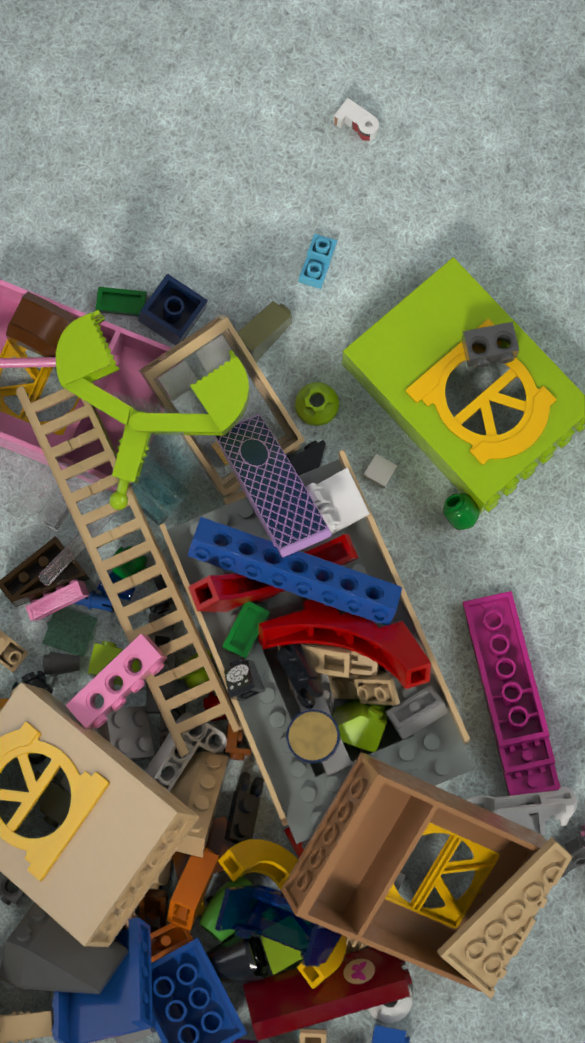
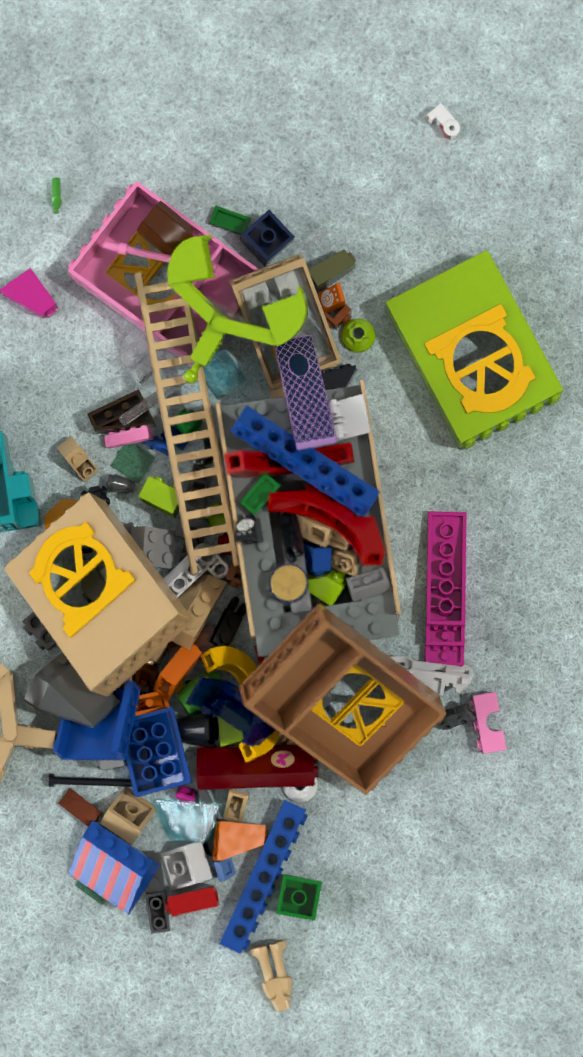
camera: 20 degrees right, 5 degrees up
(83, 704) = (130, 519): bright pink brick -> none
(275, 364) = (332, 298): none -> orange slope
(291, 386) = (342, 317): none -> dark orange bracket
(317, 261) = (386, 225): medium azure slope -> none
(341, 694) = (317, 558): none -> blue brick
(380, 470) = (392, 398): white tile -> none
(461, 511) = (444, 443): green head -> none
(488, 338) = (496, 318): dark grey brick -> none
(502, 924) = (390, 751): tan wing -> none

